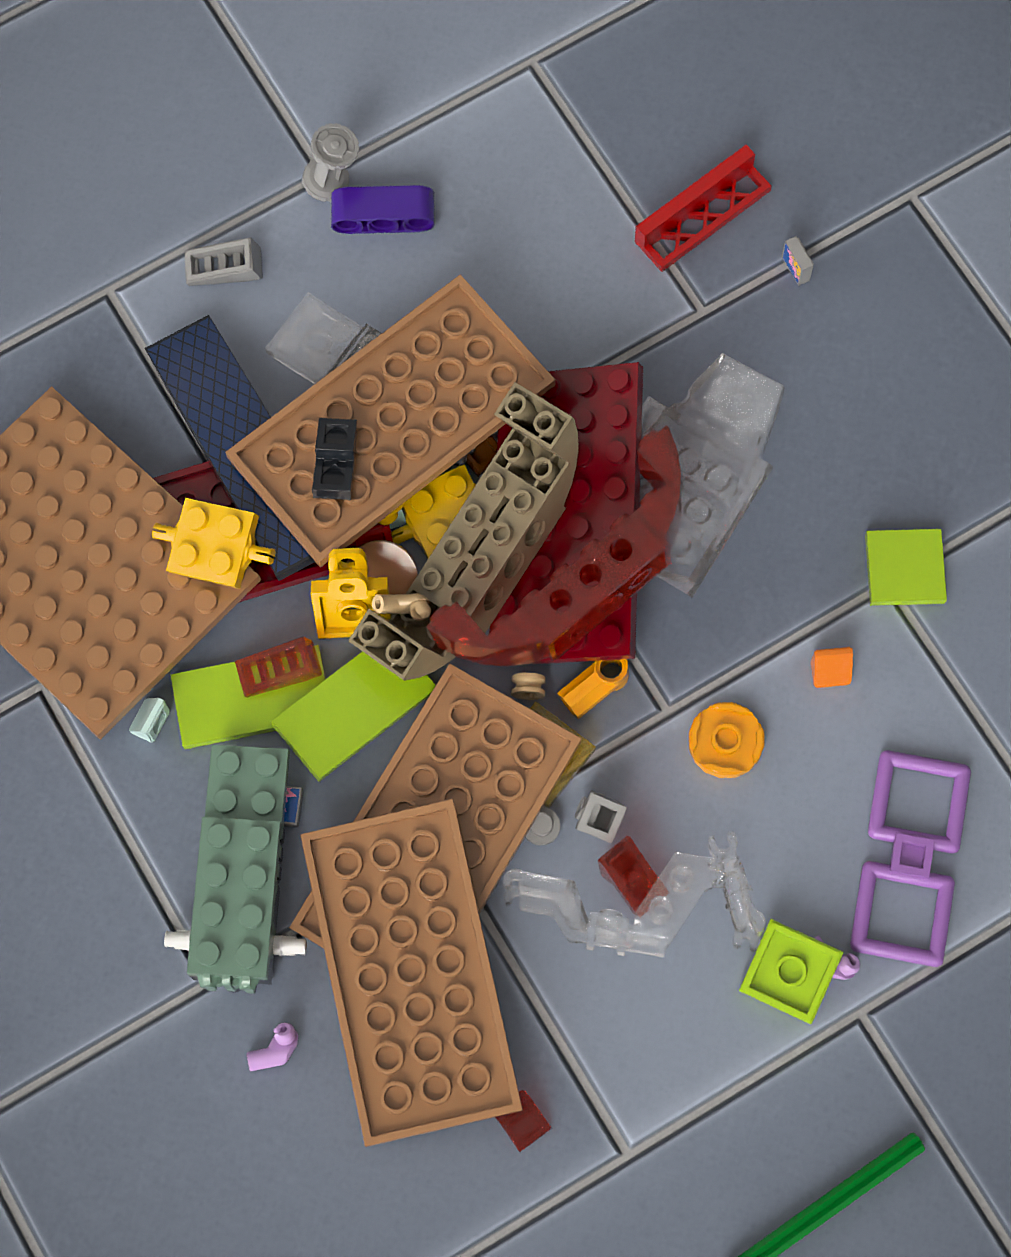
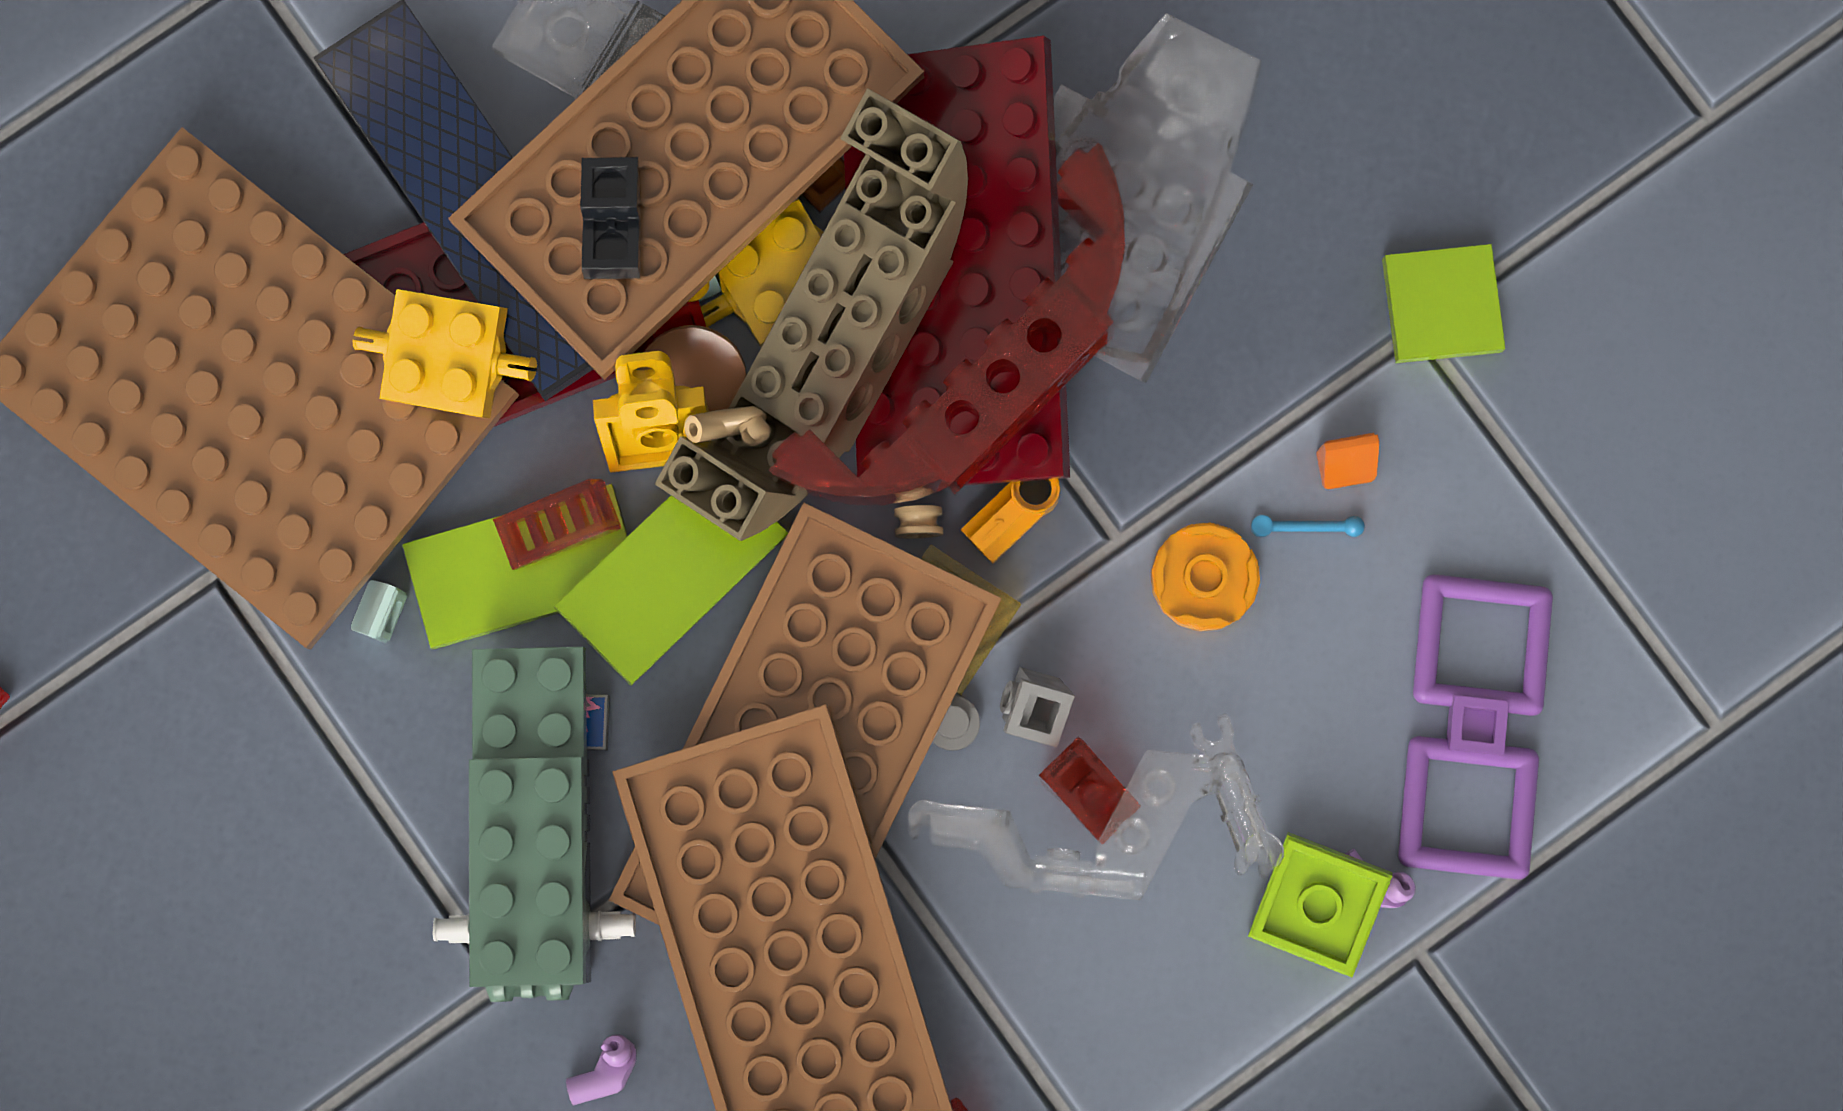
camera: 10 degrees left, 10 degrees up
(769, 709) = (1263, 526): none -> dark azure hinge

